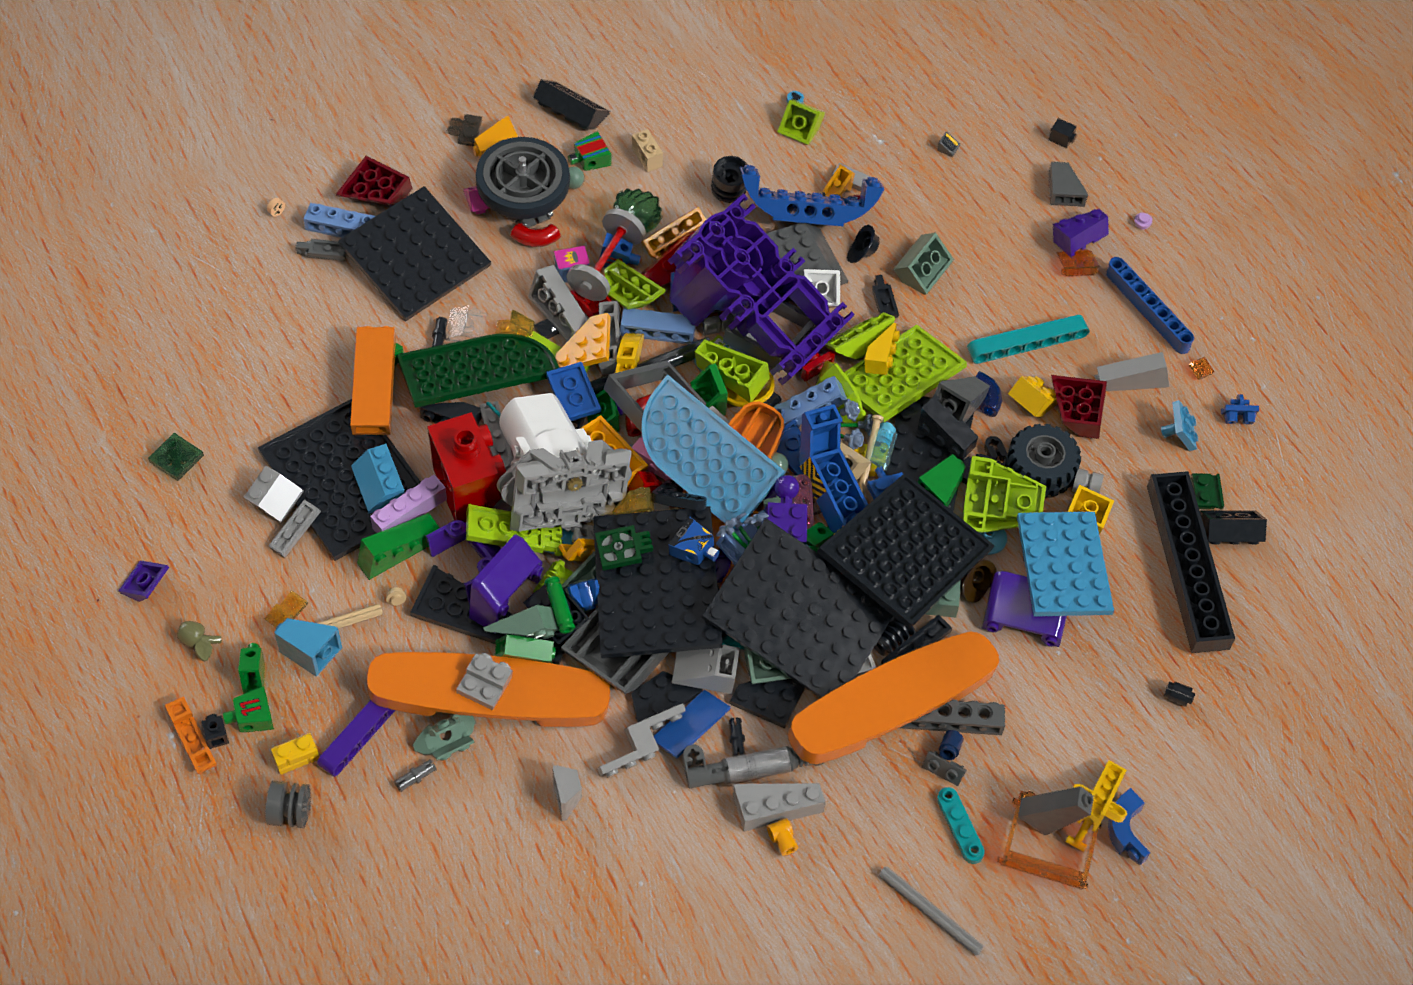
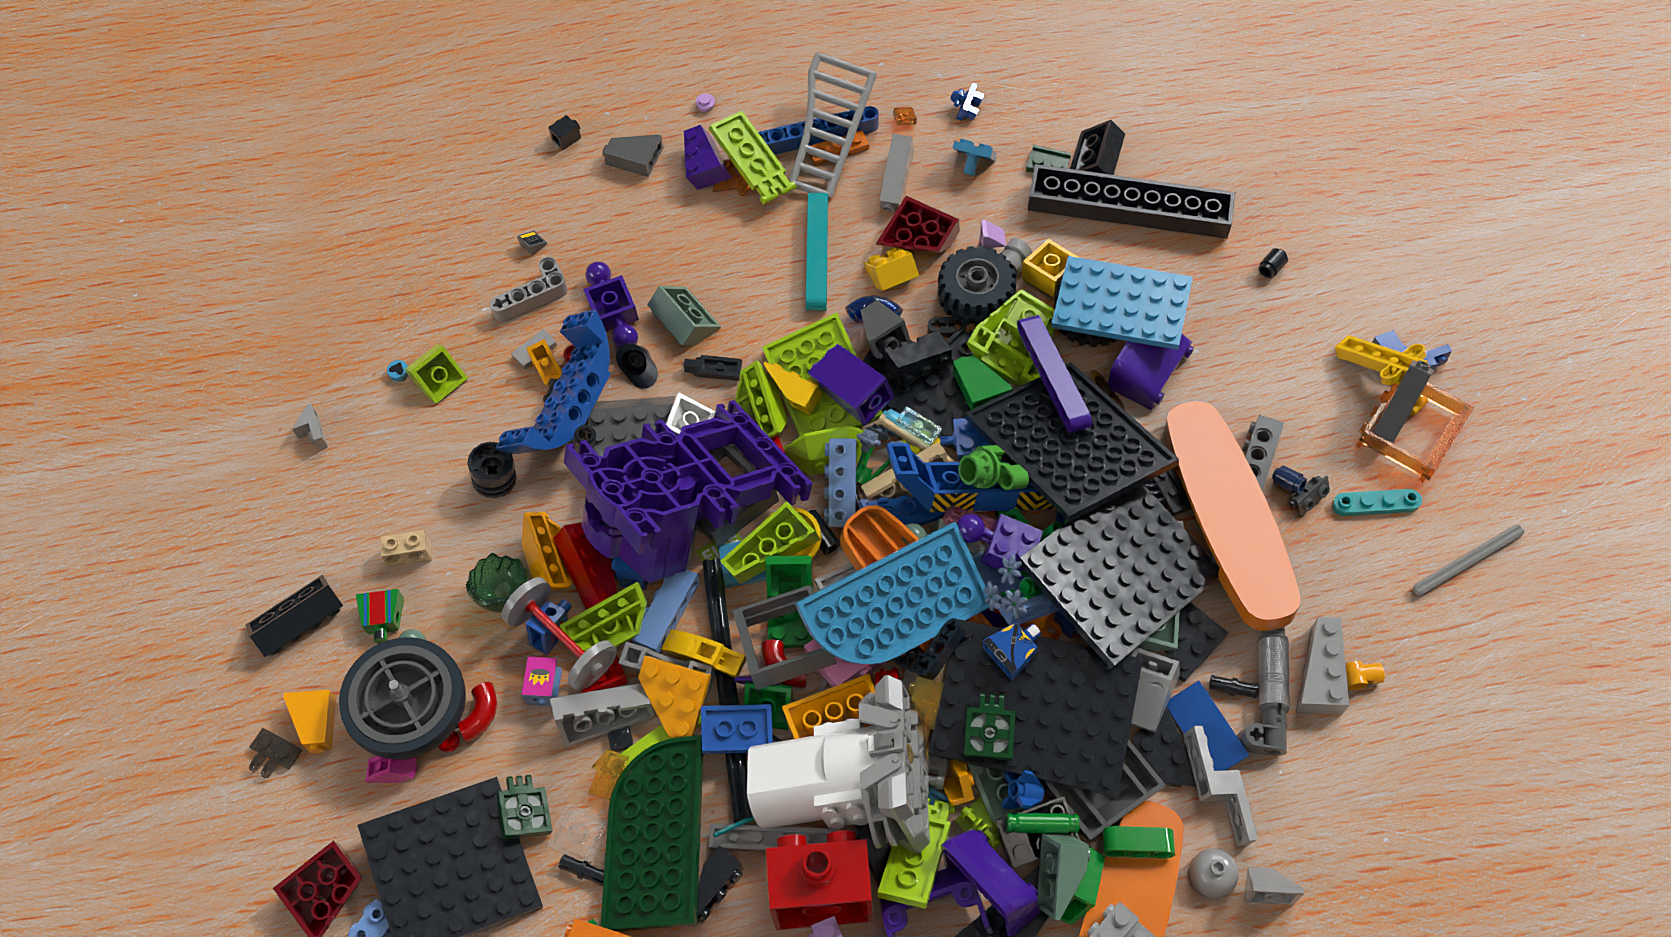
camera: 65 degrees left, 5 degrees up
(470, 283) = (523, 809): none -> dark green piece
(508, 224) = (450, 743): none -> red plate
(568, 680) = (1138, 842): none -> green beam
(568, 751) = (1213, 873): none -> light grey cylinder
(724, 62) = (309, 425): none -> light grey slope
(774, 221) = (585, 431): none -> black brick
(849, 490) = (984, 470): none -> bright green beam
(896, 385) = (852, 384): none -> dark purple slope
(900, 161) = (508, 305): none -> light grey beam
(909, 211) = (612, 303): none -> dark purple brick
(965, 523) = (1054, 374): none -> beam
(1093, 261) = (751, 156): none -> lime hinge
(1095, 456) = (991, 235): none -> lavender slope
(1144, 328) = (859, 144): none -> orange plate
(1163, 326) = (812, 112): none -> light grey bar

